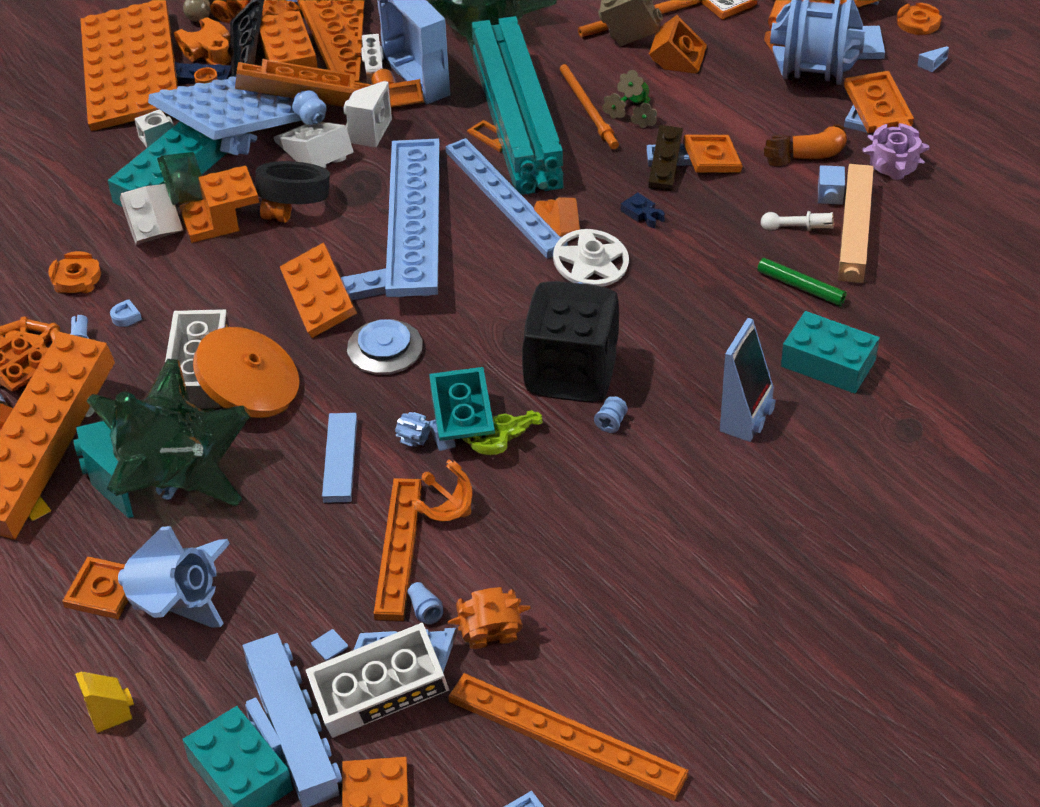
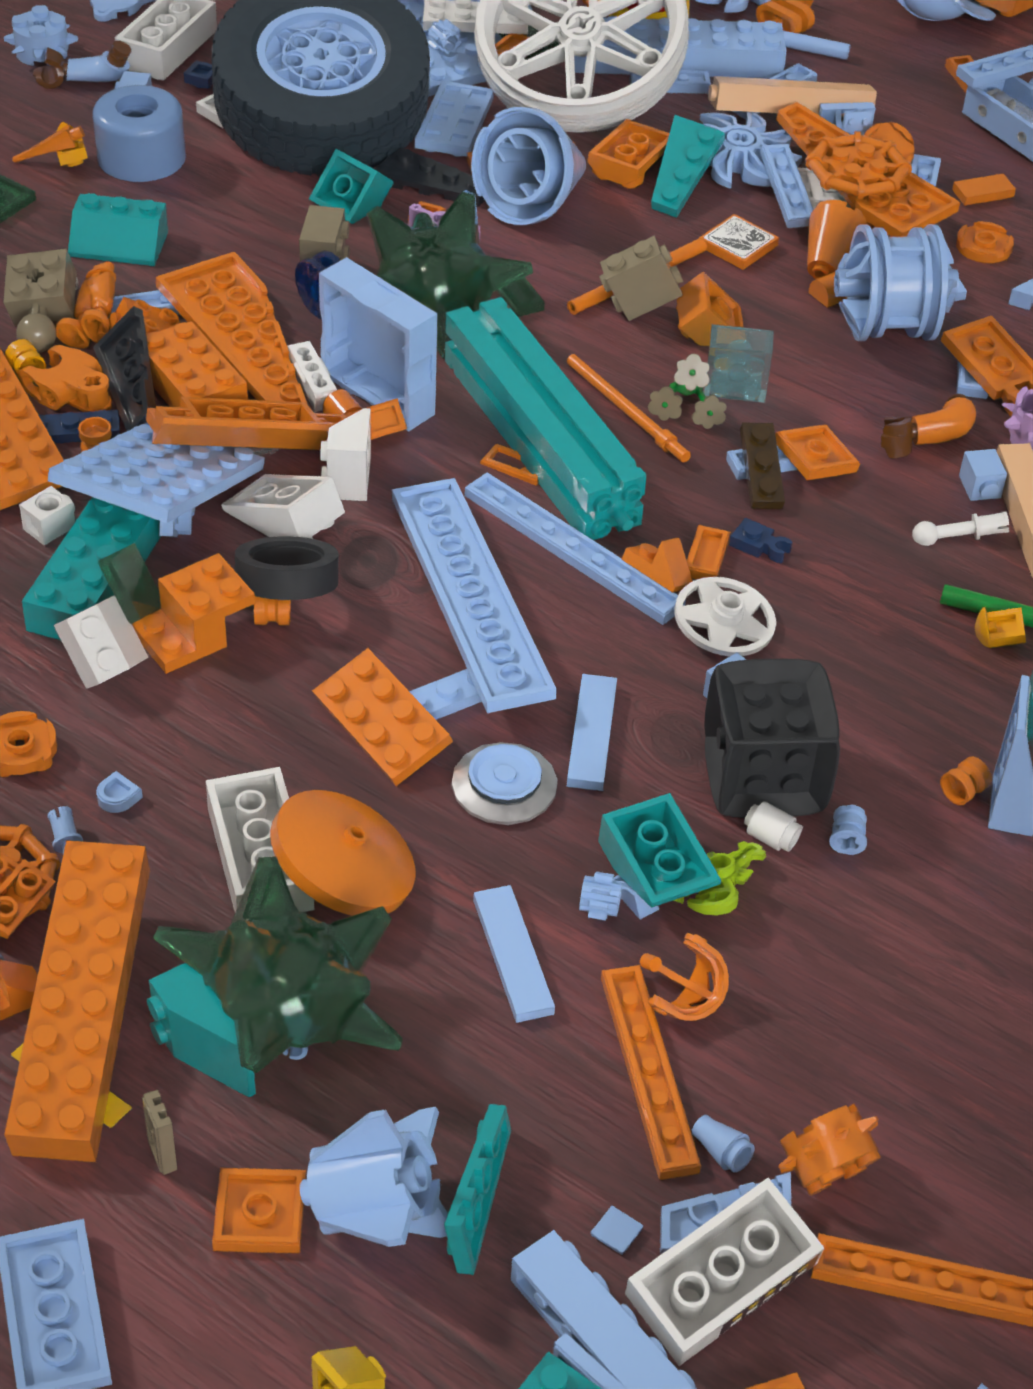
camera: 20 degrees left, 0 degrees up
(51, 525) = (159, 1132): none -> dark tan tile
(182, 20) = (23, 354): none -> light orange wheel
(237, 602) = (476, 1191): none -> teal wing
(309, 107) = (265, 457): light blue piece -> none
(460, 322) = (592, 732): none -> light blue tile
(547, 20) = (522, 297): none -> clear green tile
(557, 403) = (773, 826): none -> white brick
(600, 213) = (707, 552): none -> orange tile
(677, 83) = (739, 363): none -> clear light blue brick
(709, 395) = (964, 781): none -> orange wheel
(792, 293) = (1000, 627): none -> light orange plate

